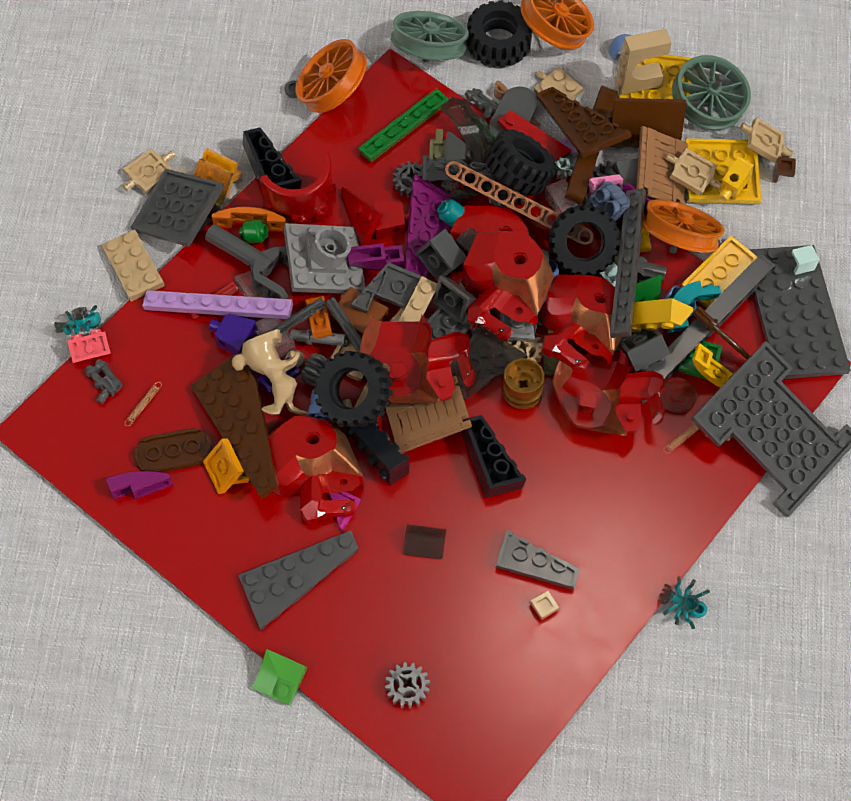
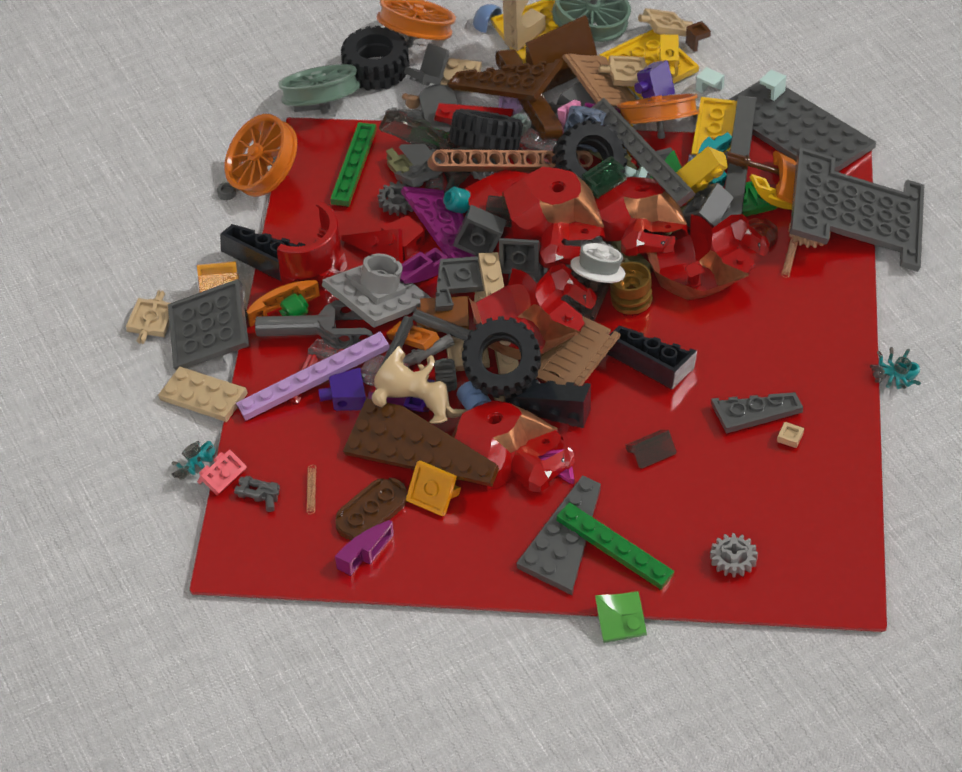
camera: 30 degrees left, 15 degrees down
(323, 612) = (615, 545): none -> green plate
(500, 351) = (599, 264): none -> white piece
(532, 74) = (432, 66): none -> dark grey bracket
(576, 268) = (604, 177): none -> clear green hinge
(704, 195) = (655, 80): none -> torso
(751, 343) = (787, 169): none -> orange slope
(758, 219) = (709, 78): none -> light aqua panel

